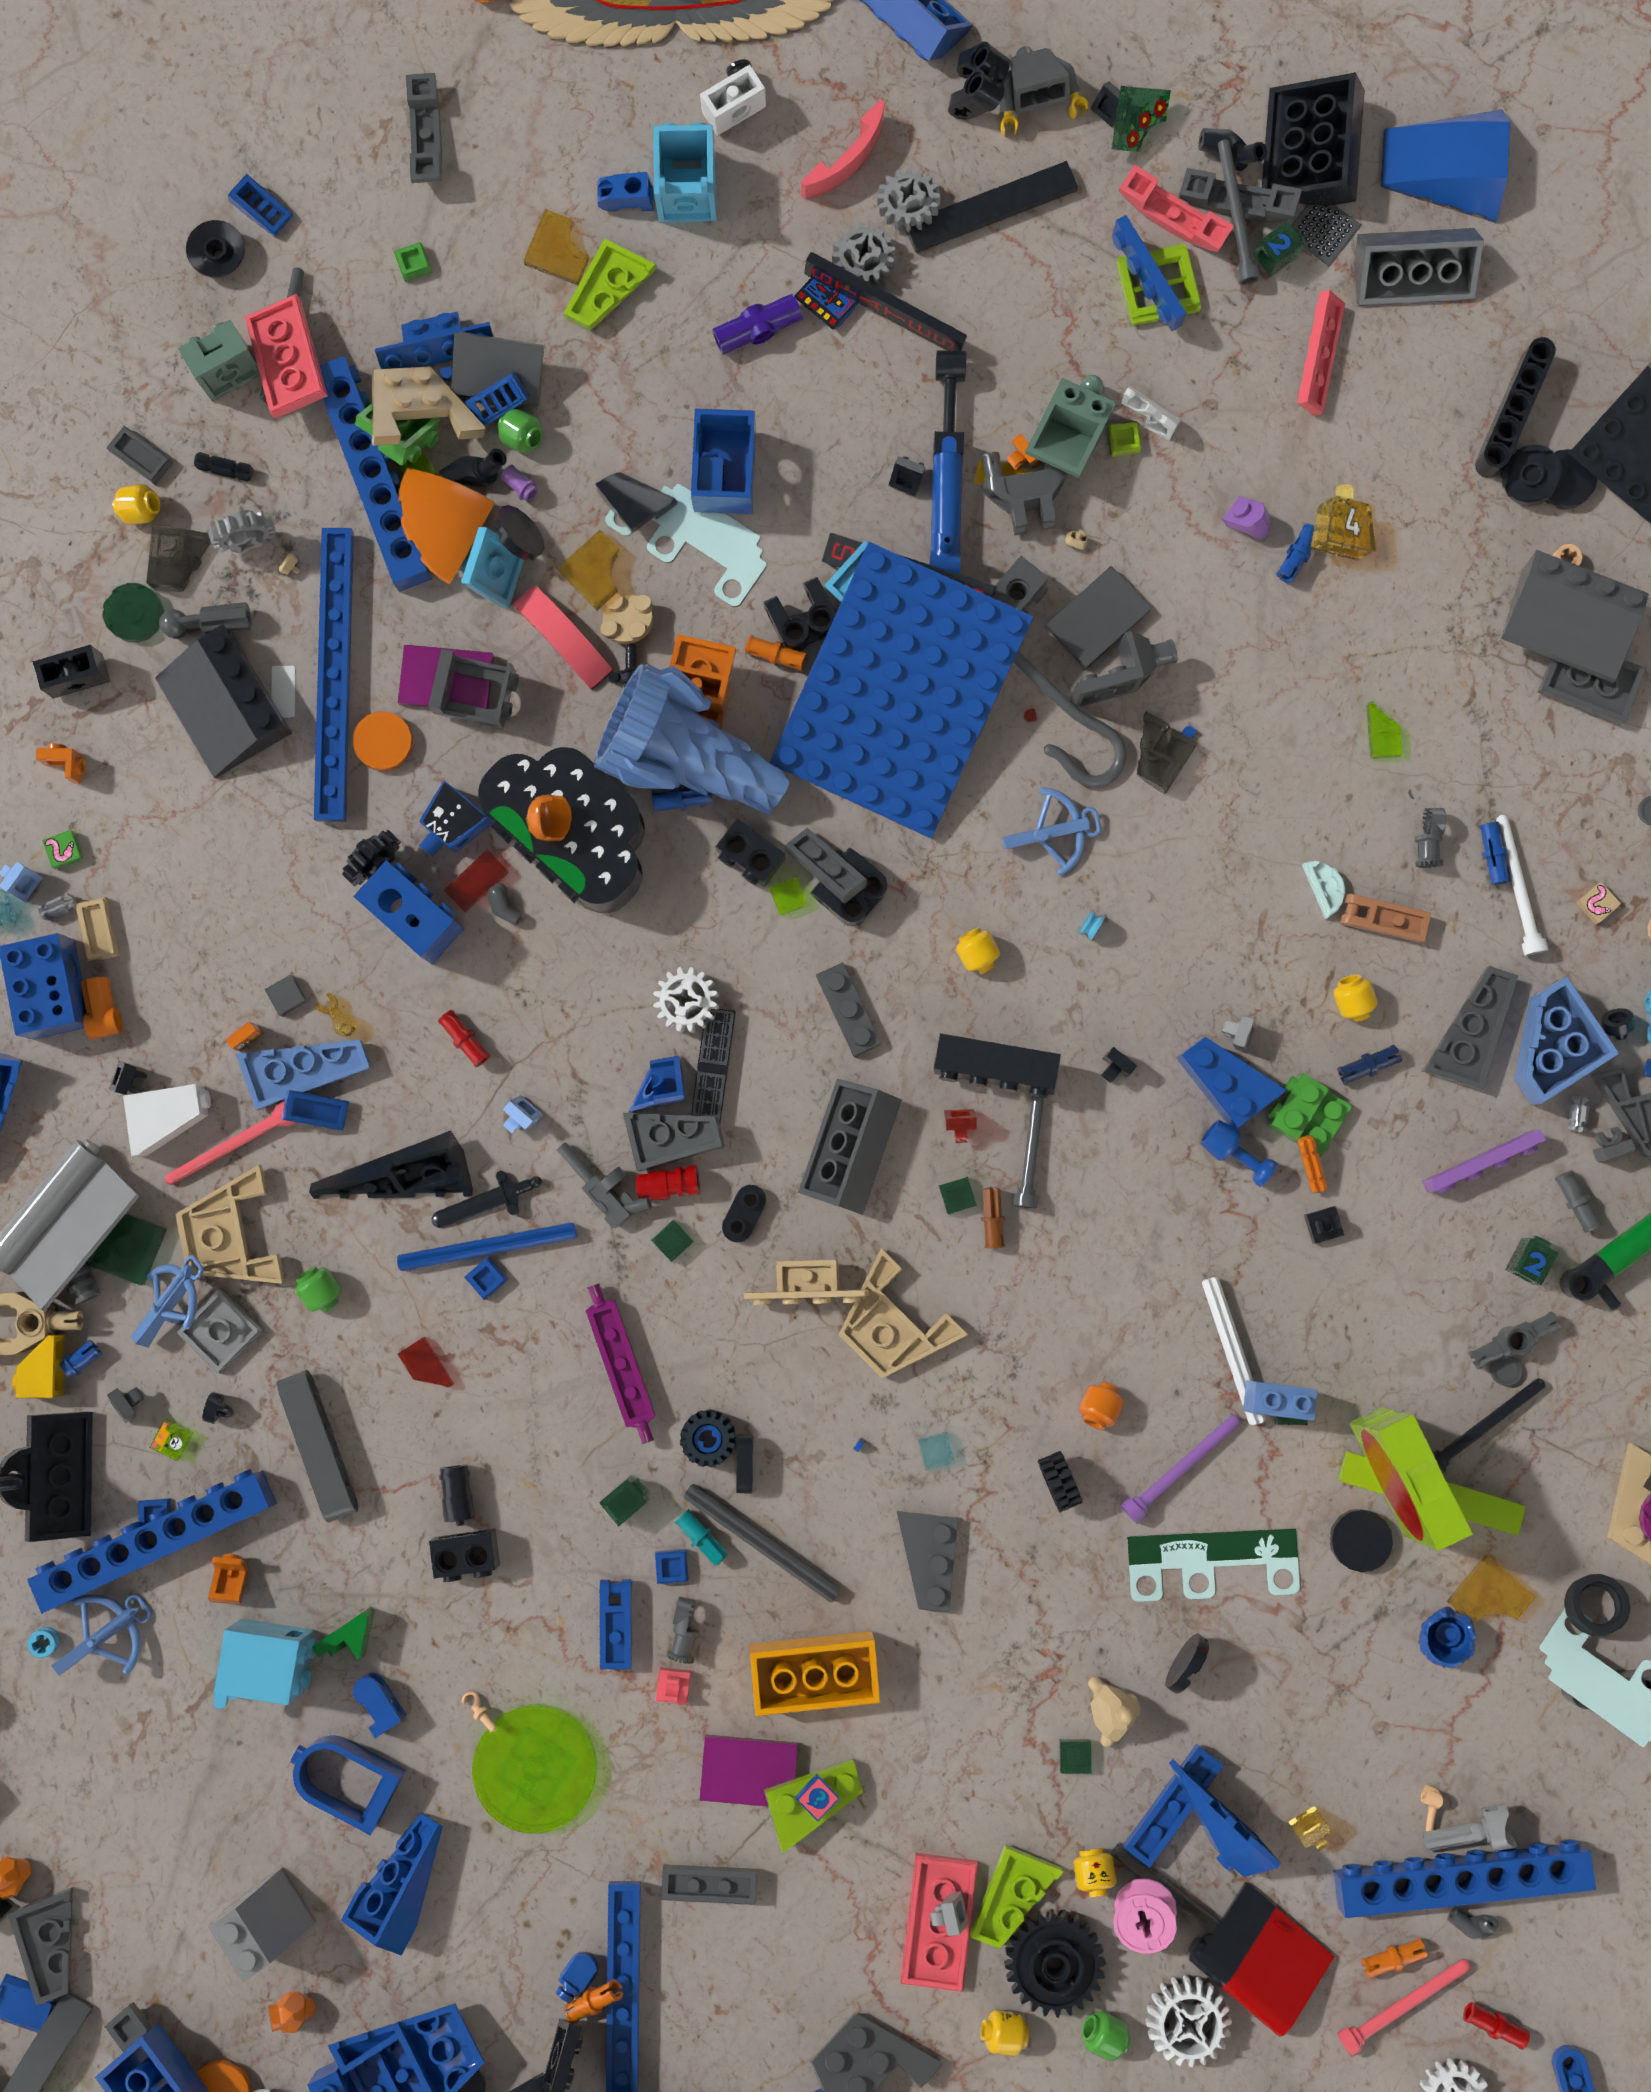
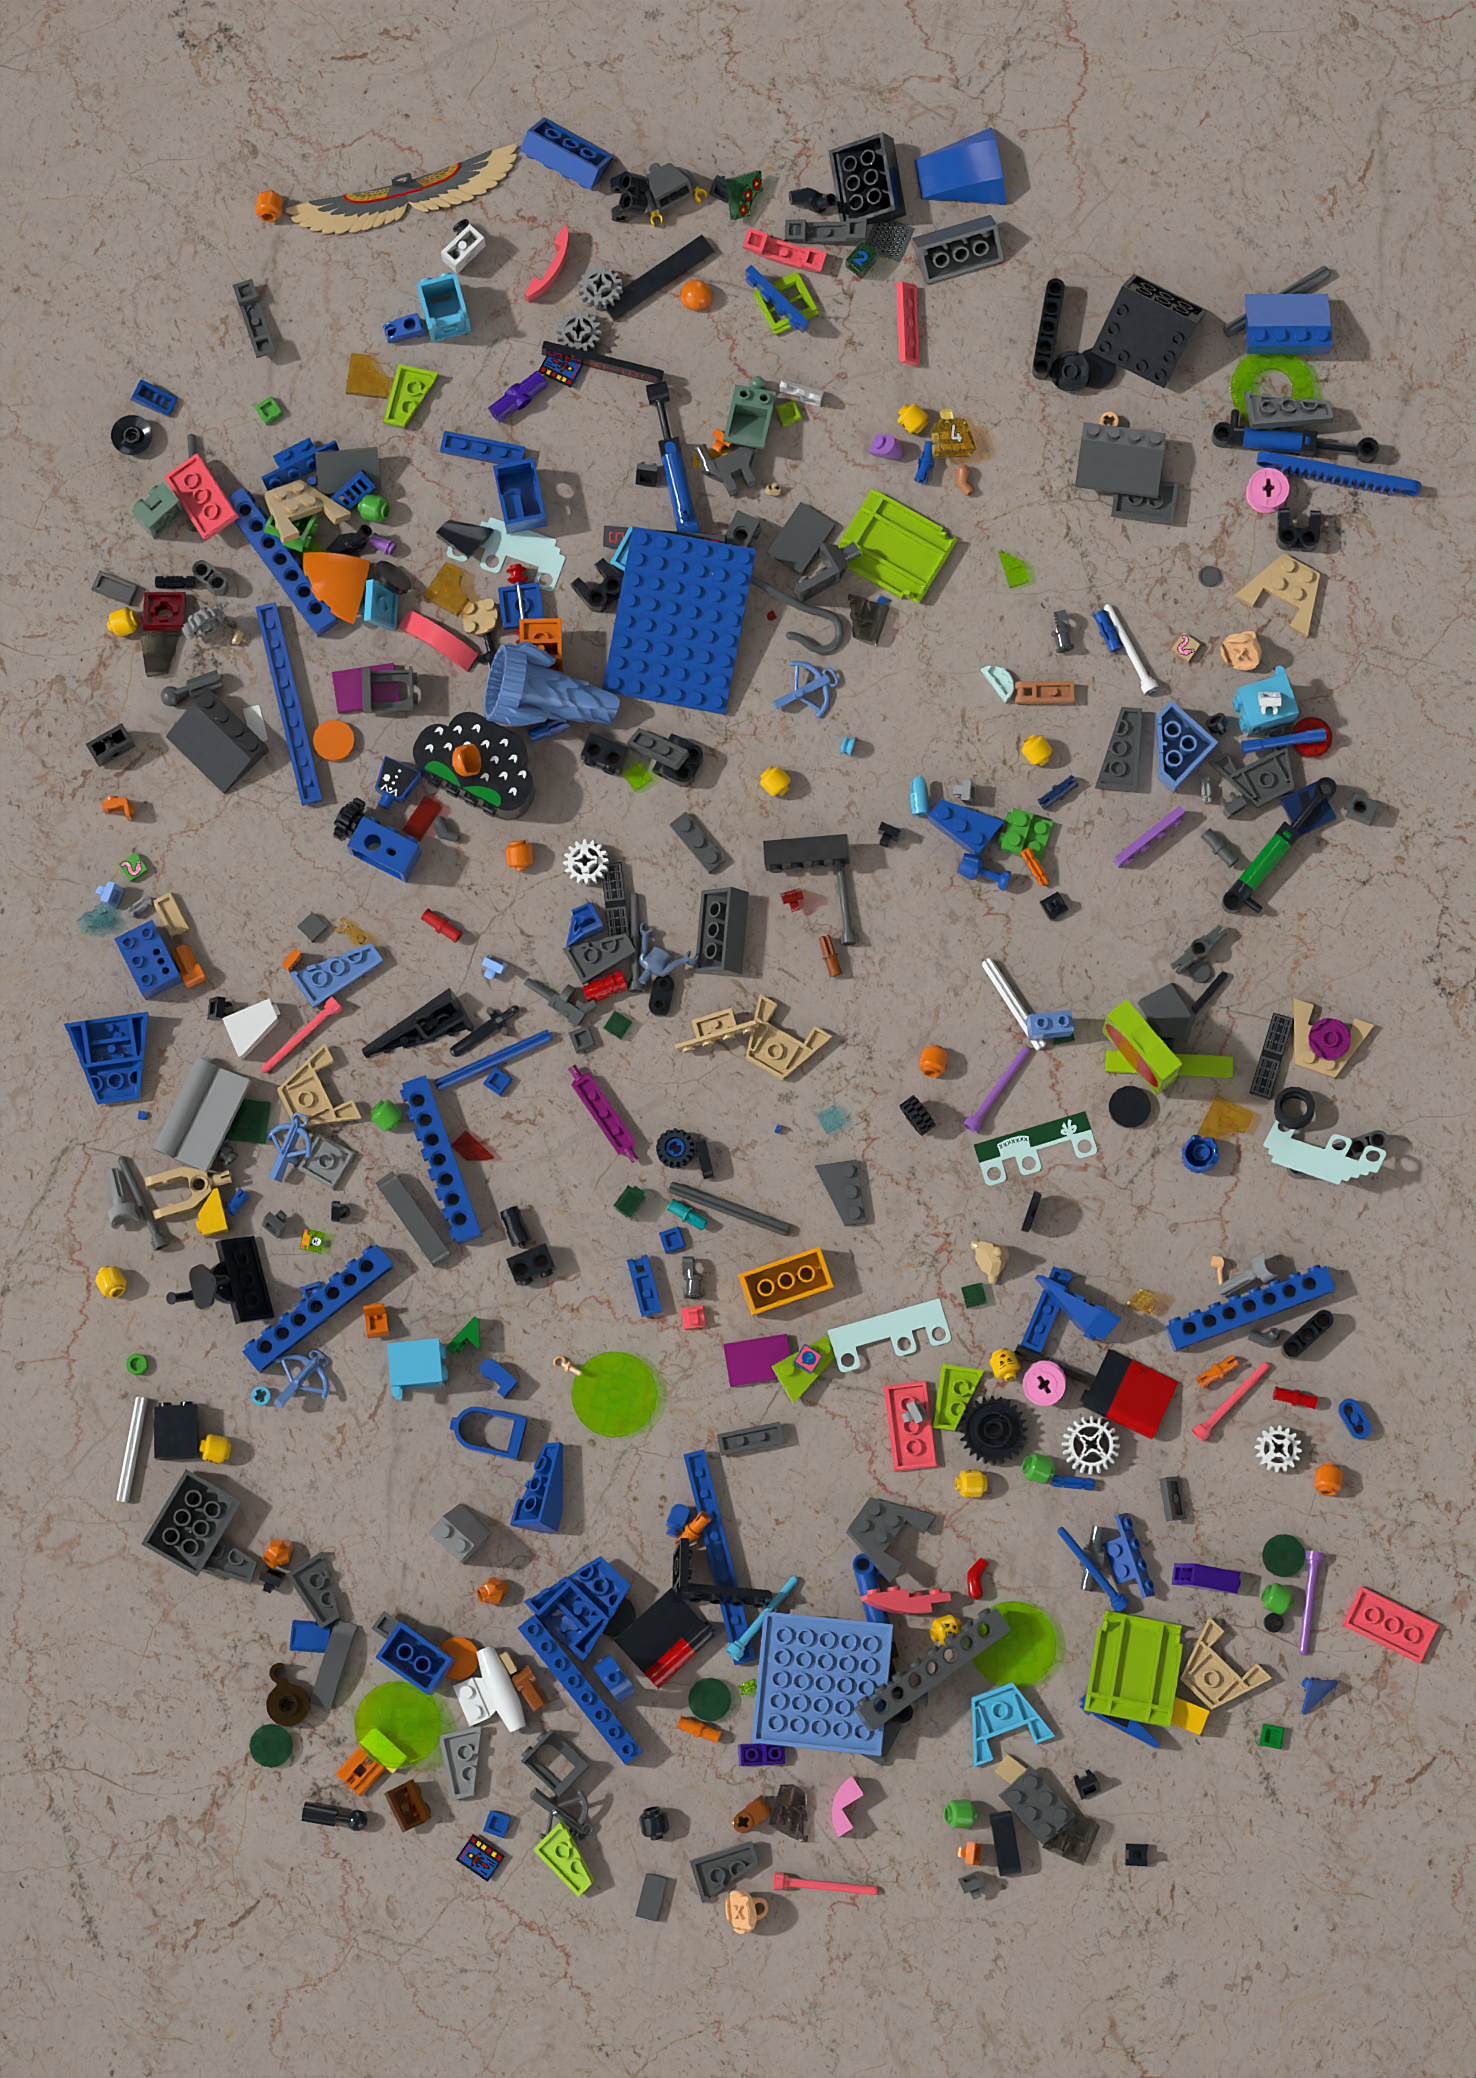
camera: 15 degrees left, 5 degrees down
(132, 612) = (138, 696): clear green tile -> none
(192, 488) = (158, 601): none -> dark red piece
(271, 472) = (210, 578): none -> dark grey beam
(315, 1110) = (353, 997): blue tile -> none
(389, 1387) = (421, 1087): none -> blue brick
(596, 966) = (519, 855): none -> orange head
(618, 1247) = (582, 1039): none -> dark grey tile
(686, 383) = (480, 448): none -> blue plate
(688, 608) = (520, 600): none -> blue plate
(713, 1187) = (634, 985): none -> dark grey piece
(751, 1163) = (657, 961): none -> sand blue piece
(776, 653) = (587, 616): orange pin -> none
(951, 1769) = (892, 1325): none -> light aqua piece
(957, 1195) = (802, 947): clear green tile -> none
(1038, 243) = (696, 295): none -> orange hair
(1151, 2066) = (1073, 1482): none -> blue axle
(1173, 1023) = (919, 797): none -> medium azure hinge
(1230, 662) = (896, 547): none -> lime piece
(1248, 269) = (844, 279): dark grey piece -> none
(1295, 486) = (912, 418): none -> yellow head
(1342, 588) = (961, 479): none -> nougat arm
(1451, 1422) = (1169, 1013): none -> dark grey tile
(1532, 1260) = (1197, 894): clear green brick -> none
(1551, 1940) = (1316, 1329): none -> black beam
(1579, 1518) = (1271, 1056): none -> tile

